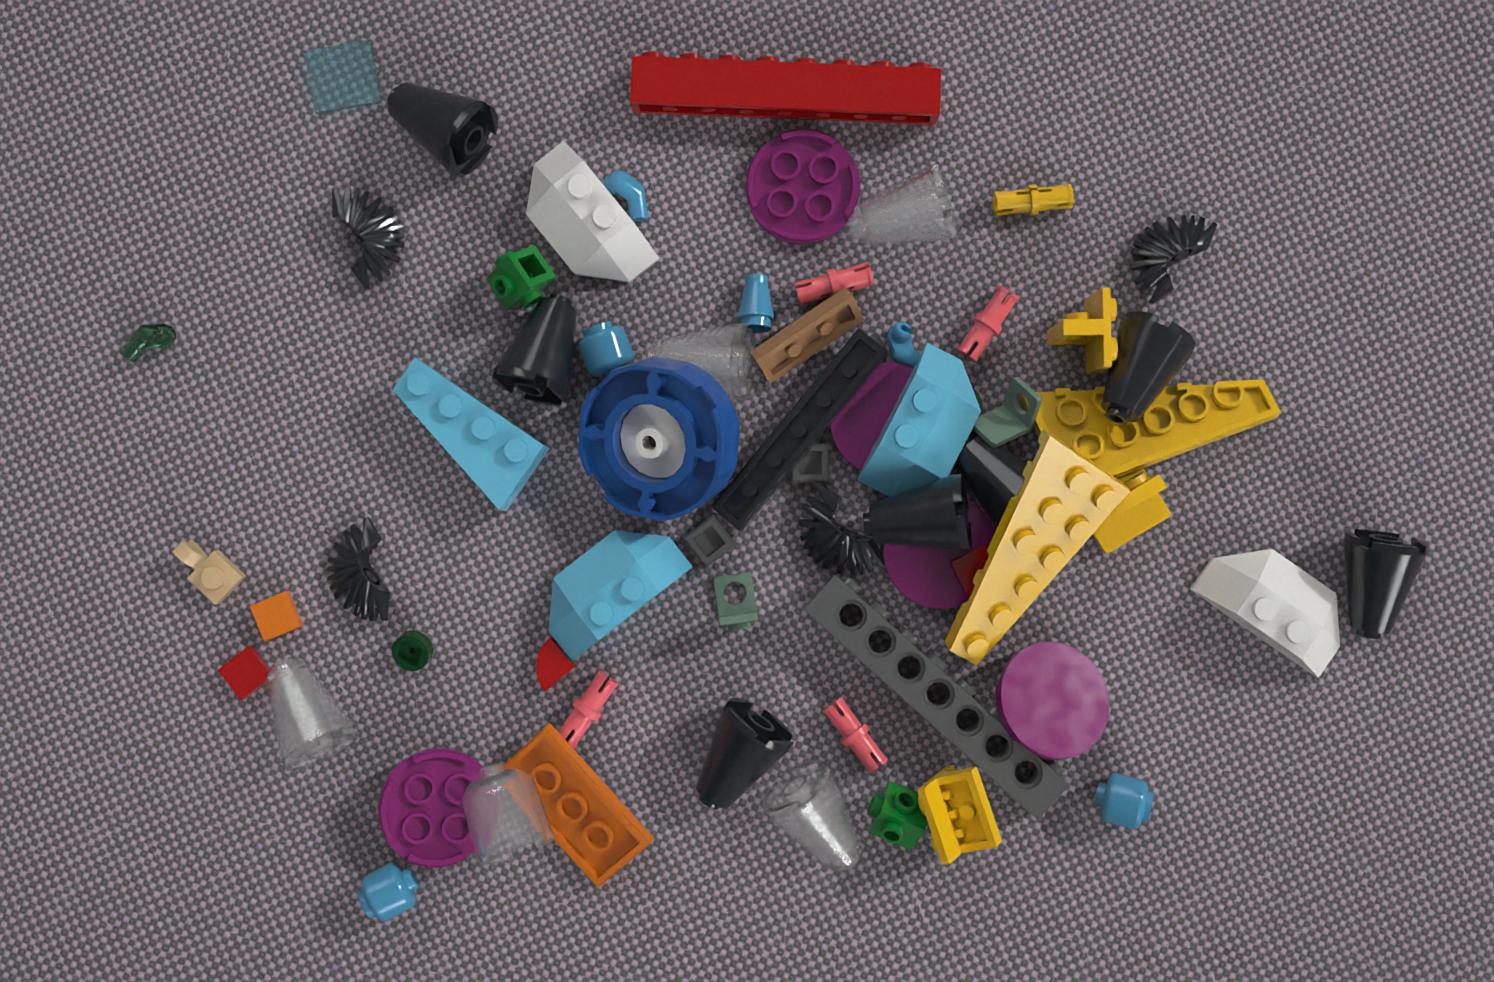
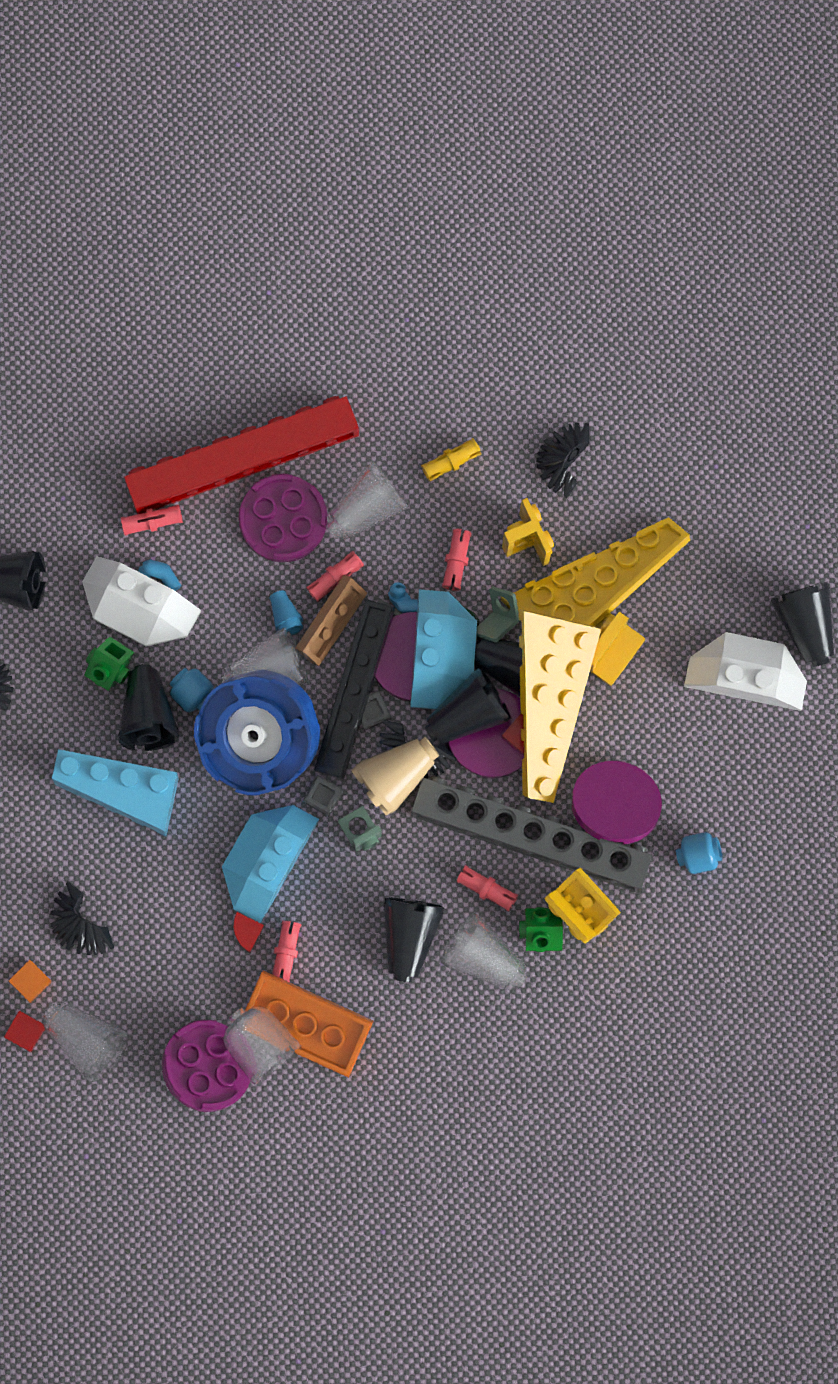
camera: 25 degrees left, 10 degrees down
(388, 891) = (197, 1141): dark azure head -> none
(412, 650) = (140, 963): dark green tile -> none
(645, 123) = (151, 519): none -> coral pin
(804, 556) = (395, 772): none -> tan cone
(1144, 364) = (576, 541): black cone -> none

